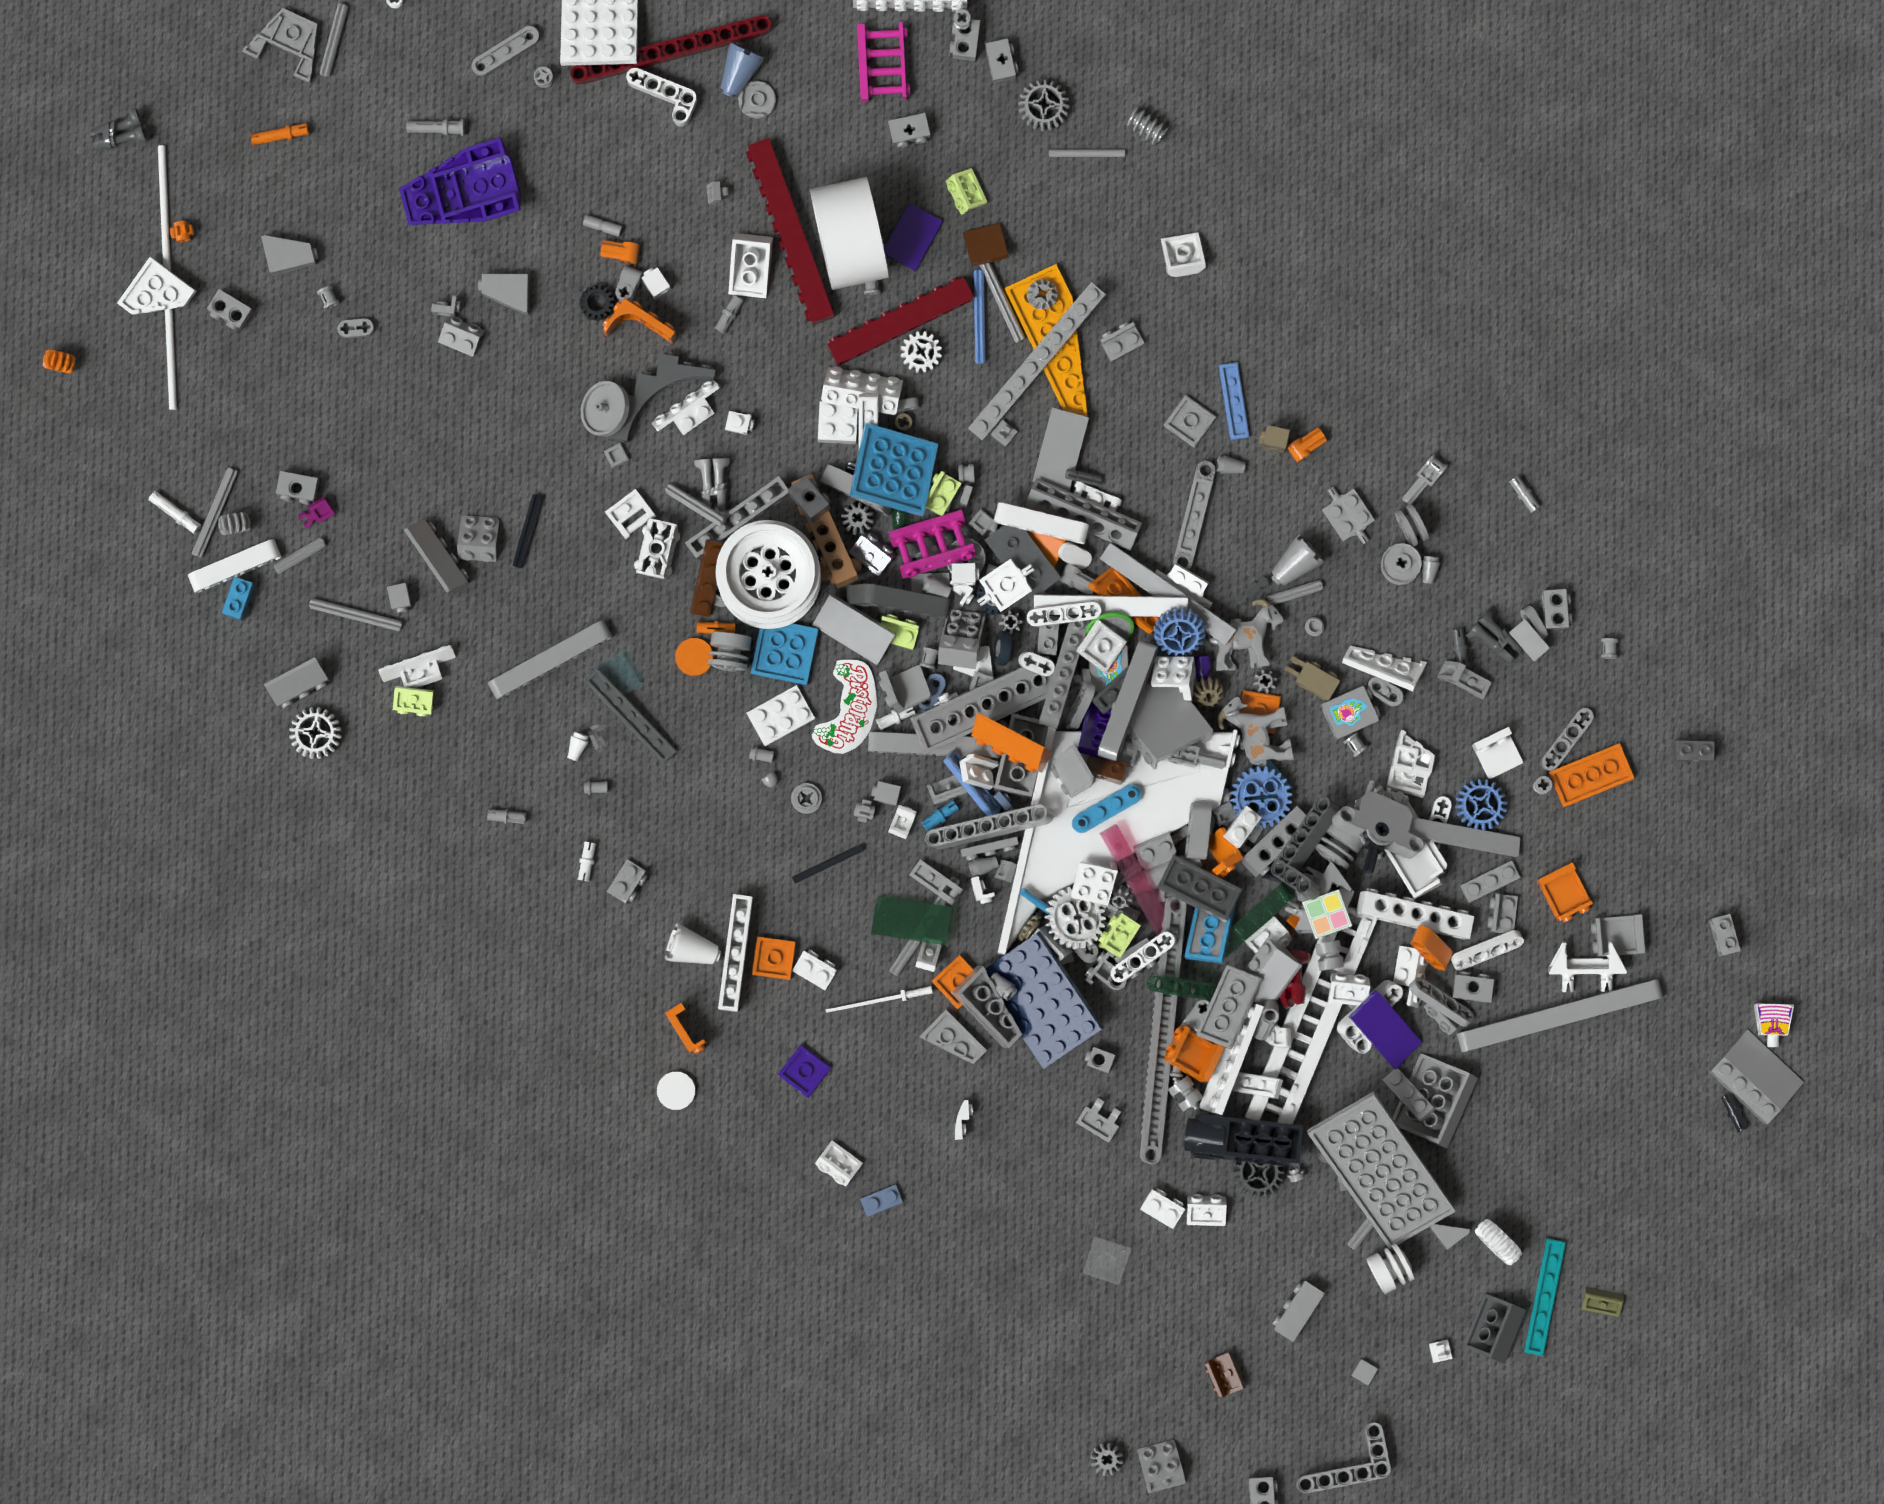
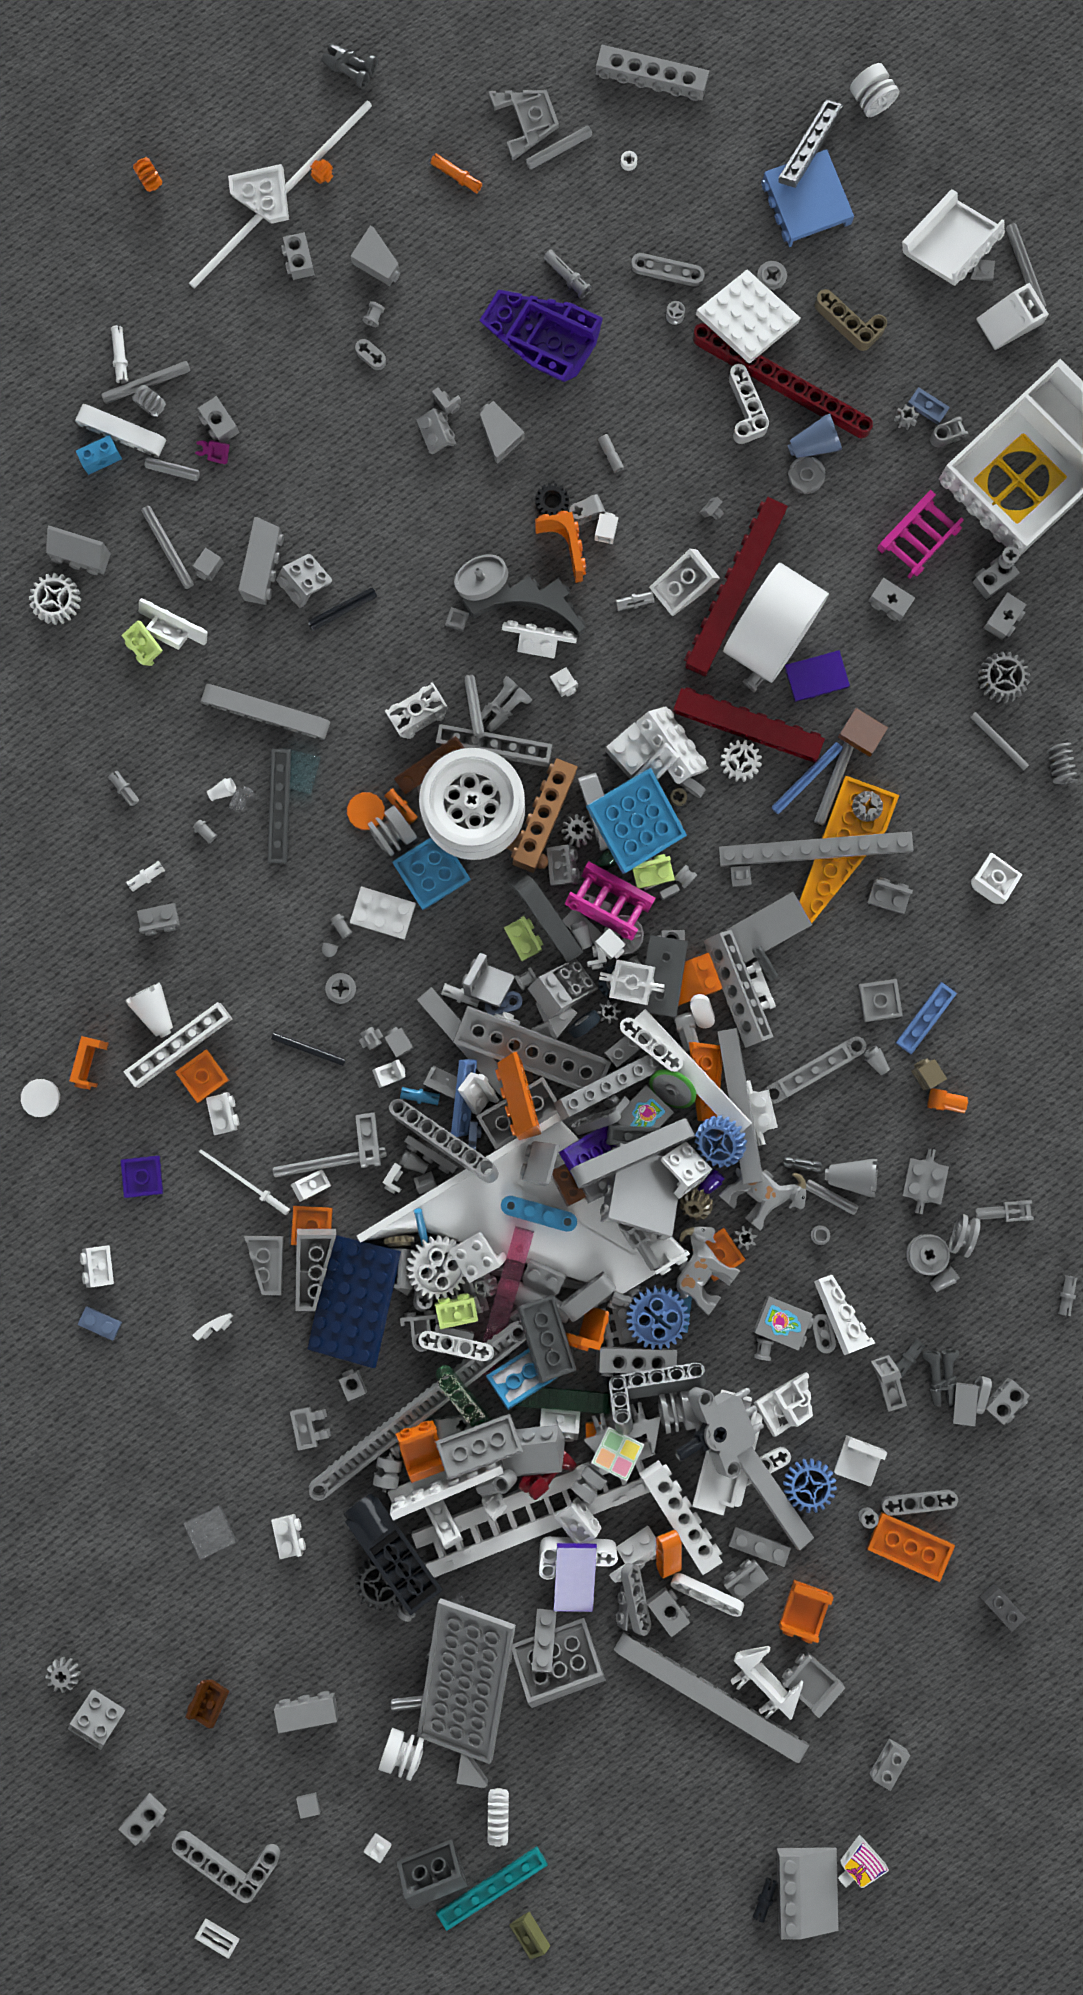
camera: 50 degrees right, 0 degrees up
(620, 251) = (607, 487): orange piece -> none
(626, 509) = (424, 662): white plate -> none
(812, 509) = (557, 770): flat silver brick -> none
(854, 629) = (495, 904): tile -> none
(857, 709) = (440, 962): sticker -> none
(912, 920) = (323, 1149): clear green tile -> none
(966, 191) = (887, 681): yellowish green bracket -> none
(981, 522) = (661, 921): light grey tile -> none
(1004, 987) = (336, 1264): light grey cone -> none
(1038, 659) = (592, 1061): white beam -> none
(1041, 523) = (701, 964): white beam -> none
(1101, 646) = (654, 1094): white plate -> none
(1206, 1210) = (317, 1570): white bracket -> none
(1242, 827) = (621, 1326): white plate -> none
(1314, 679) = (782, 1272): dark tan hinge -> none
(1609, 648) = (1016, 1469): light grey bush -> none

